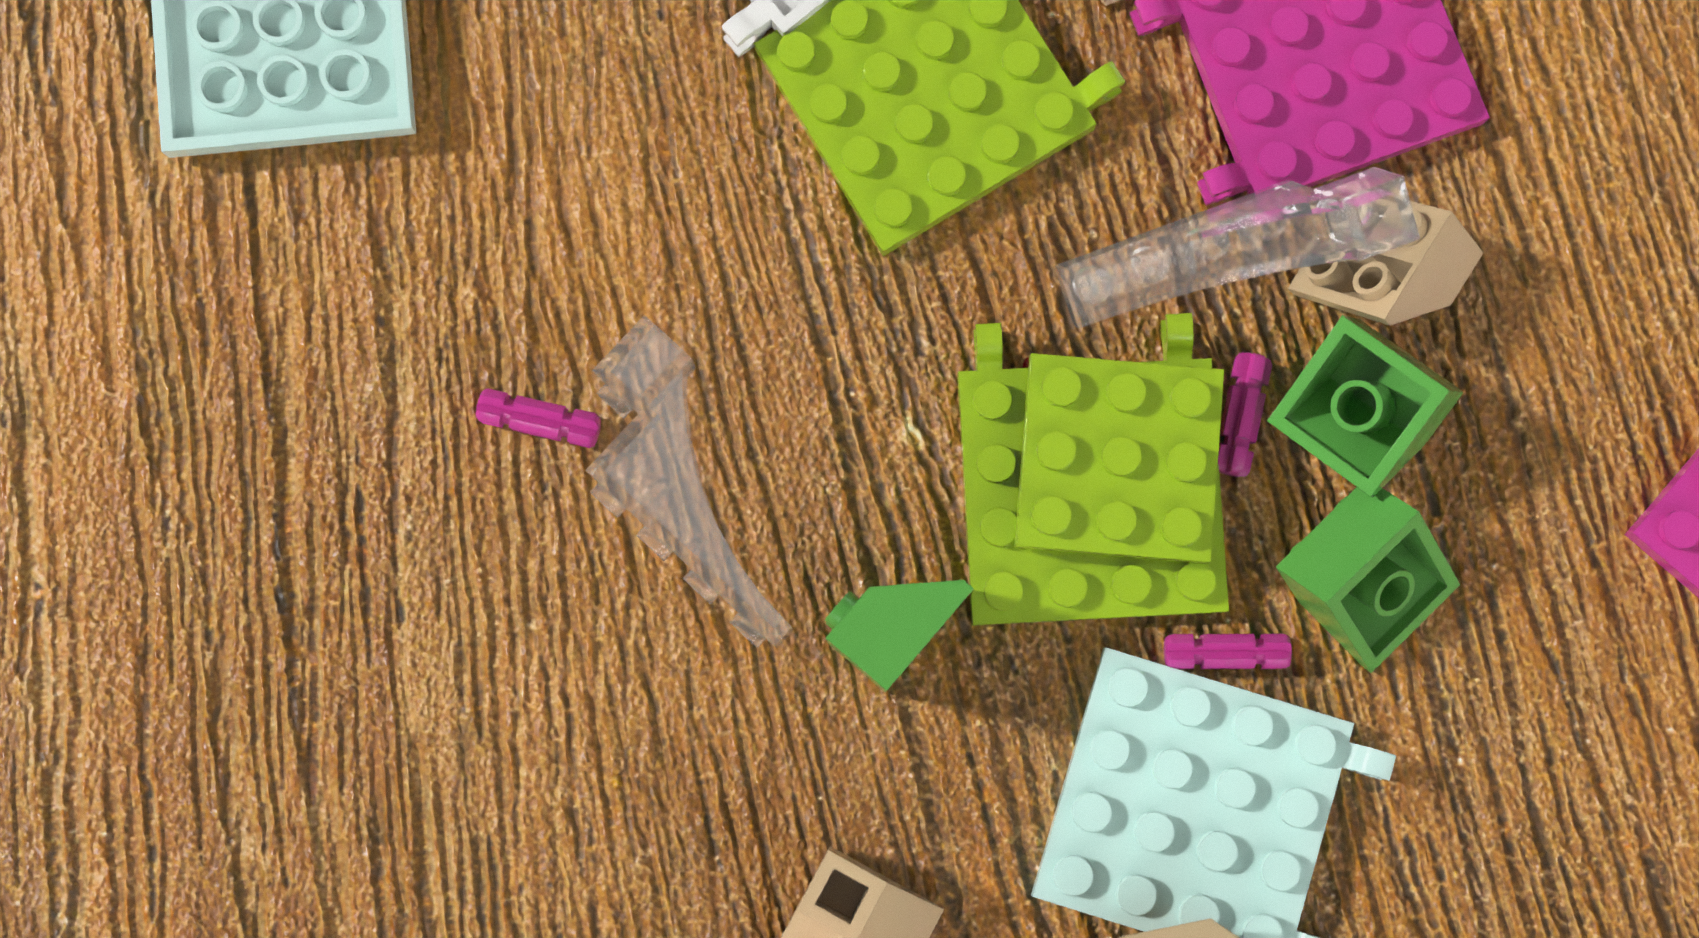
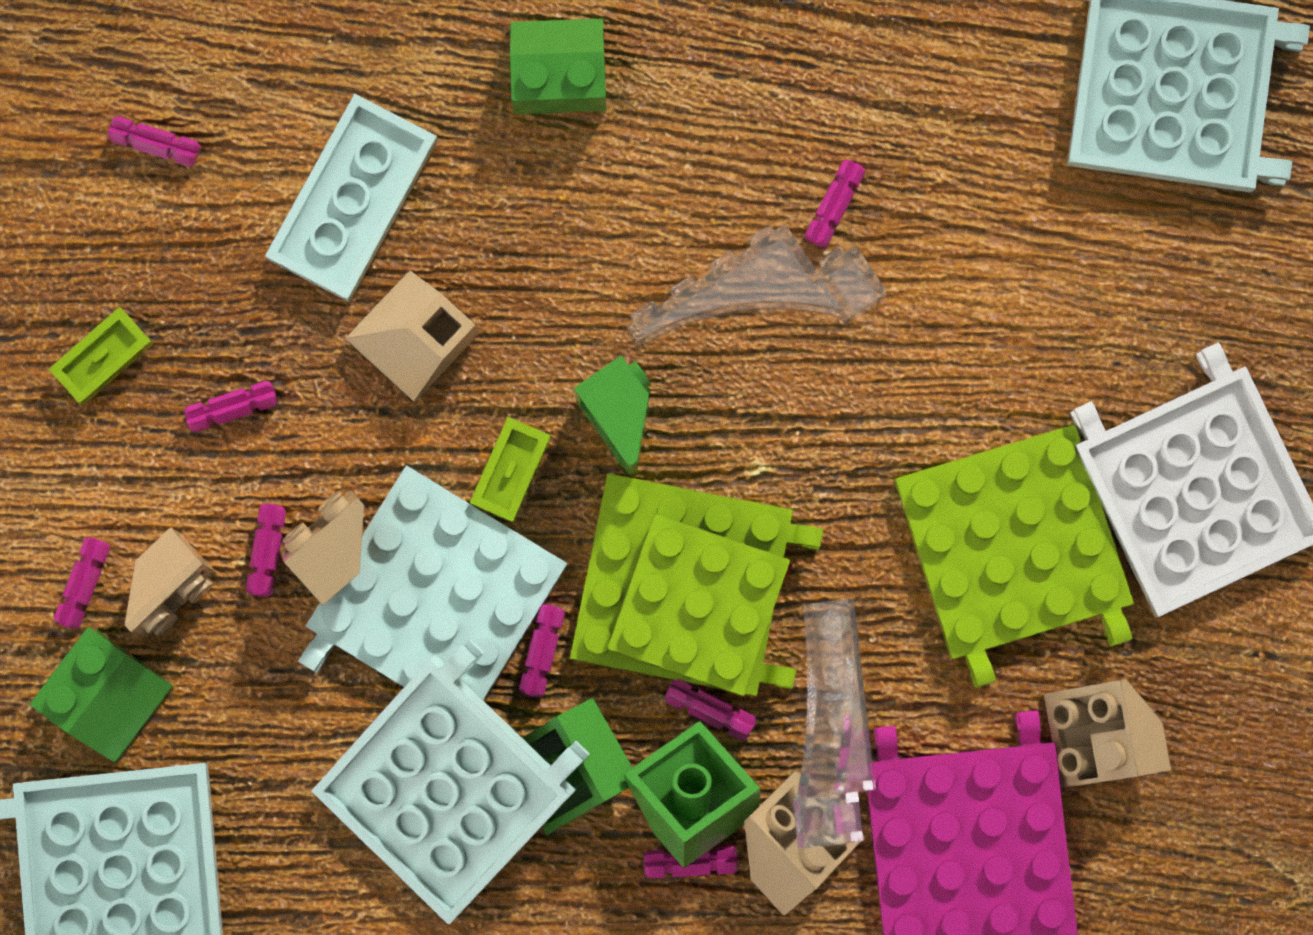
camera: 100 degrees right, 0 degrees up
(436, 833) = (557, 66): none -> bright green slope
(1002, 754) = (510, 470): none -> lime plate
(1449, 726) = (445, 786): none -> light aqua plate
(1456, 430) = (722, 860): none -> dark pink axle

